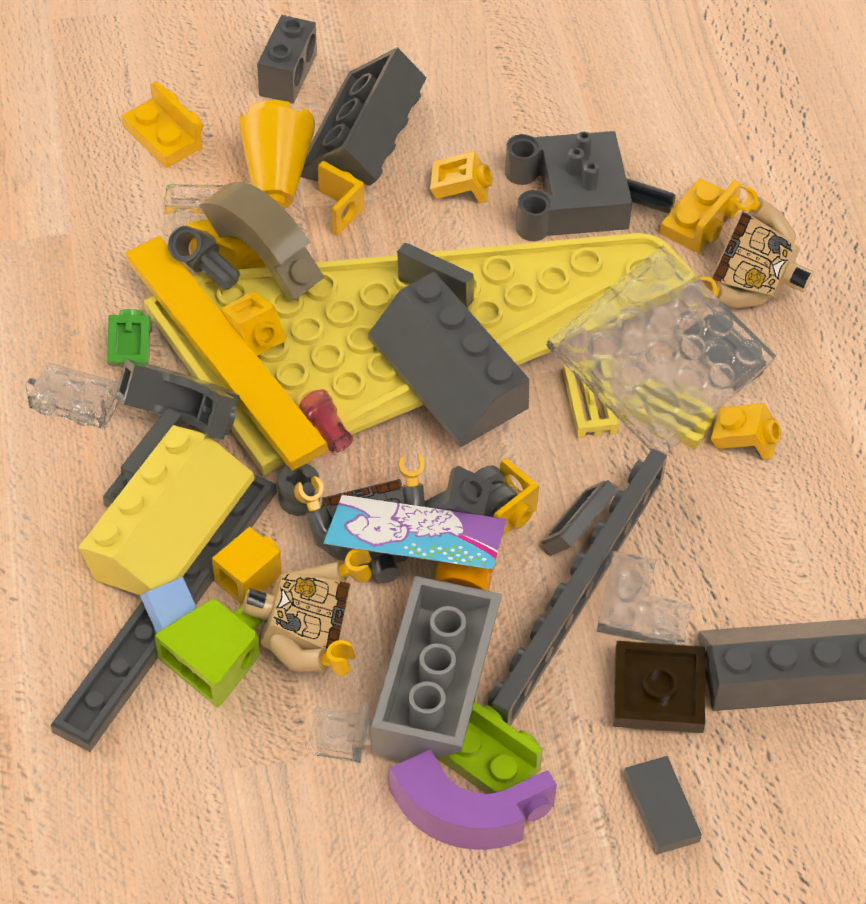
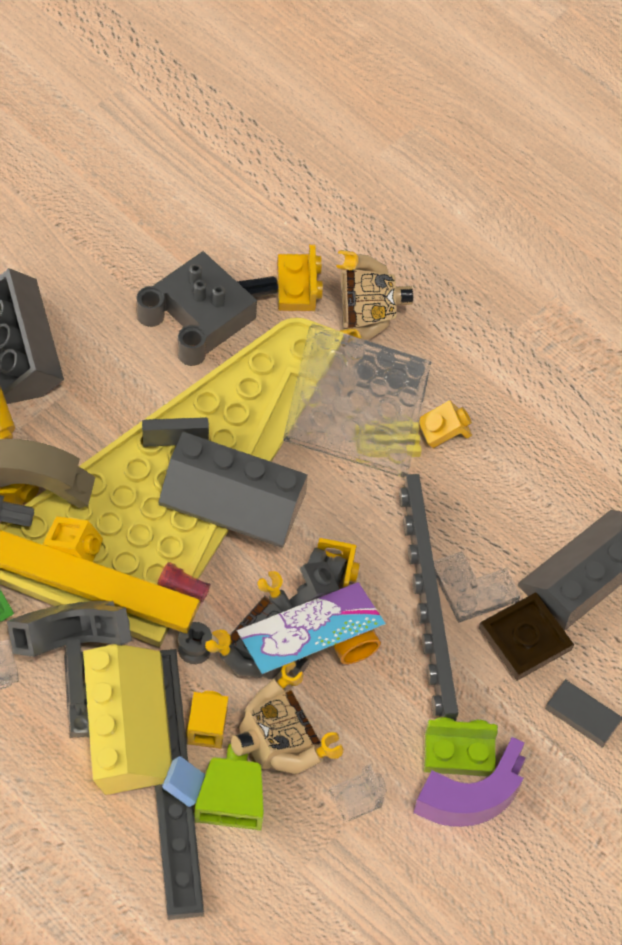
camera: 40 degrees left, 5 degrees up
(344, 189) = (44, 398): yellow bracket -> none
(434, 670) = (392, 714): light grey slope -> none
(459, 175) = (117, 343): yellow bracket -> none
(578, 517) = (392, 551): dark grey tile -> none
(595, 424) = (338, 481): light yellow tile -> none

